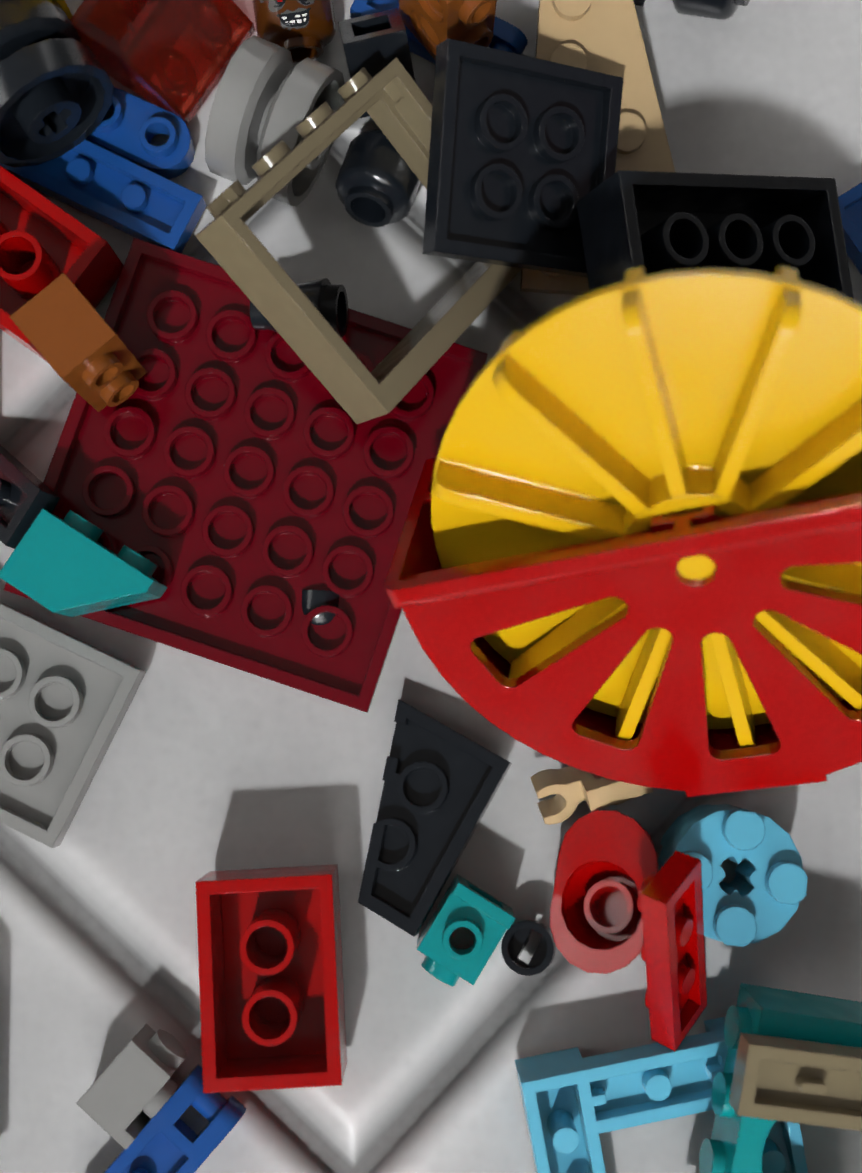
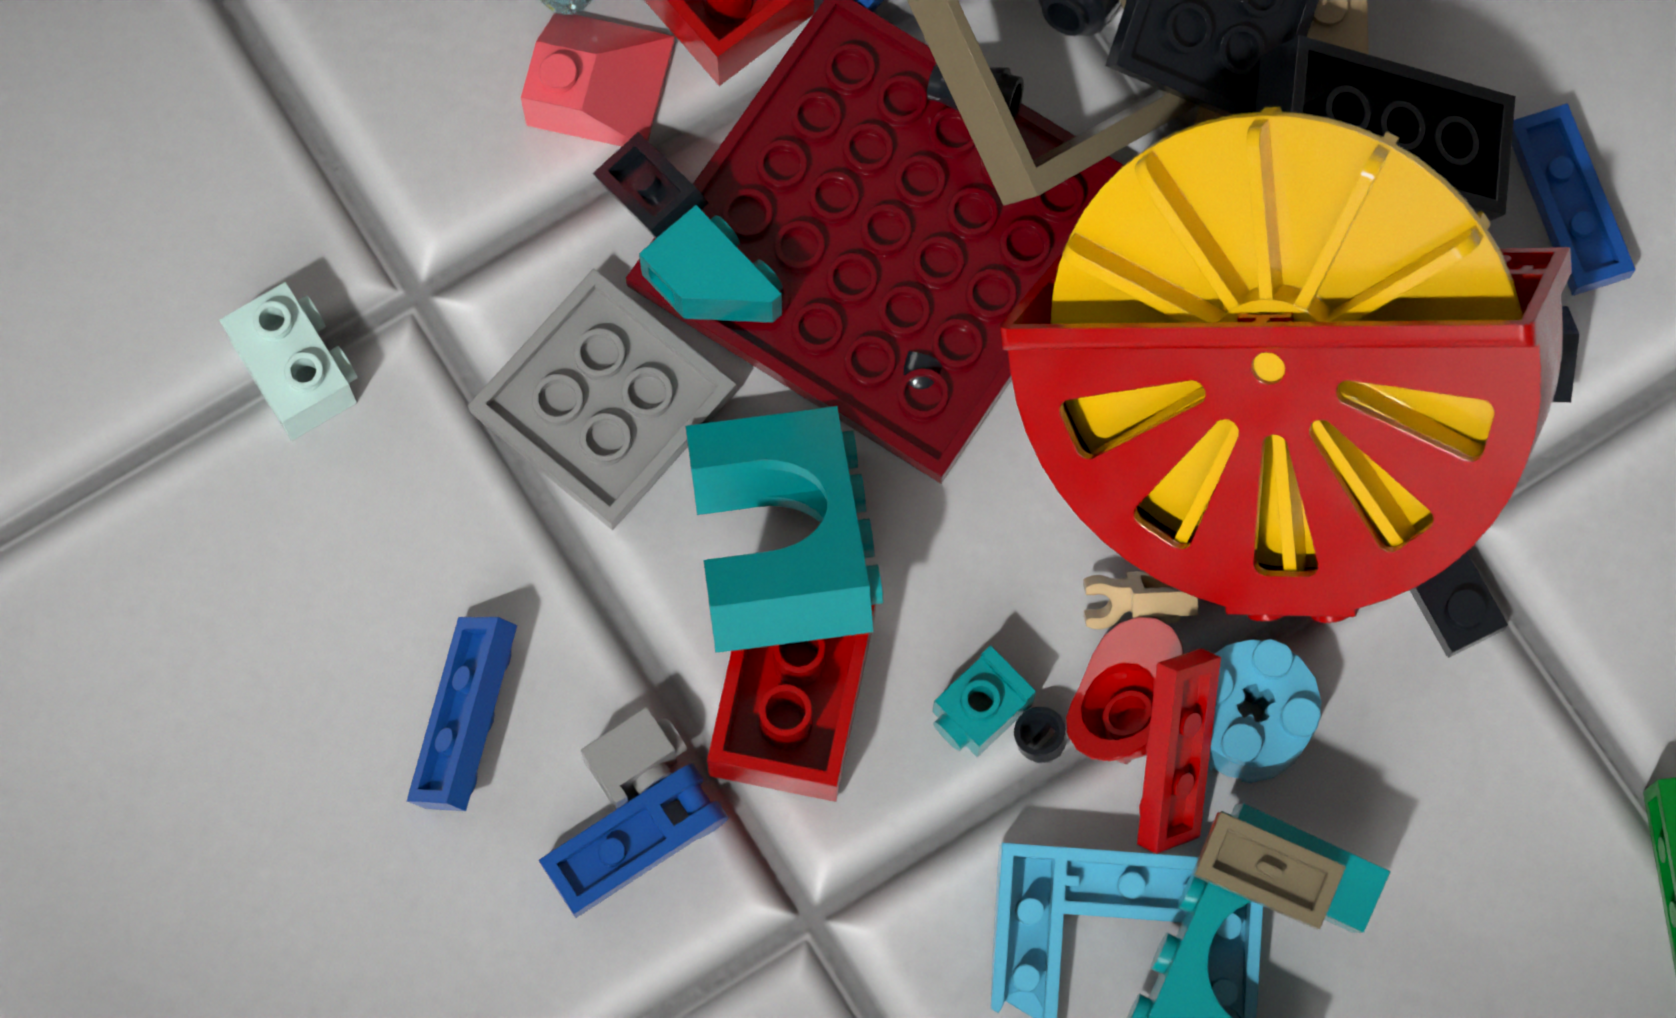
camera: 15 degrees right, 10 degrees down
(79, 344) = (769, 71): dark orange brick -> none
(273, 888) = (806, 588): none -> teal arch
(426, 816) = (980, 582): black wing -> none

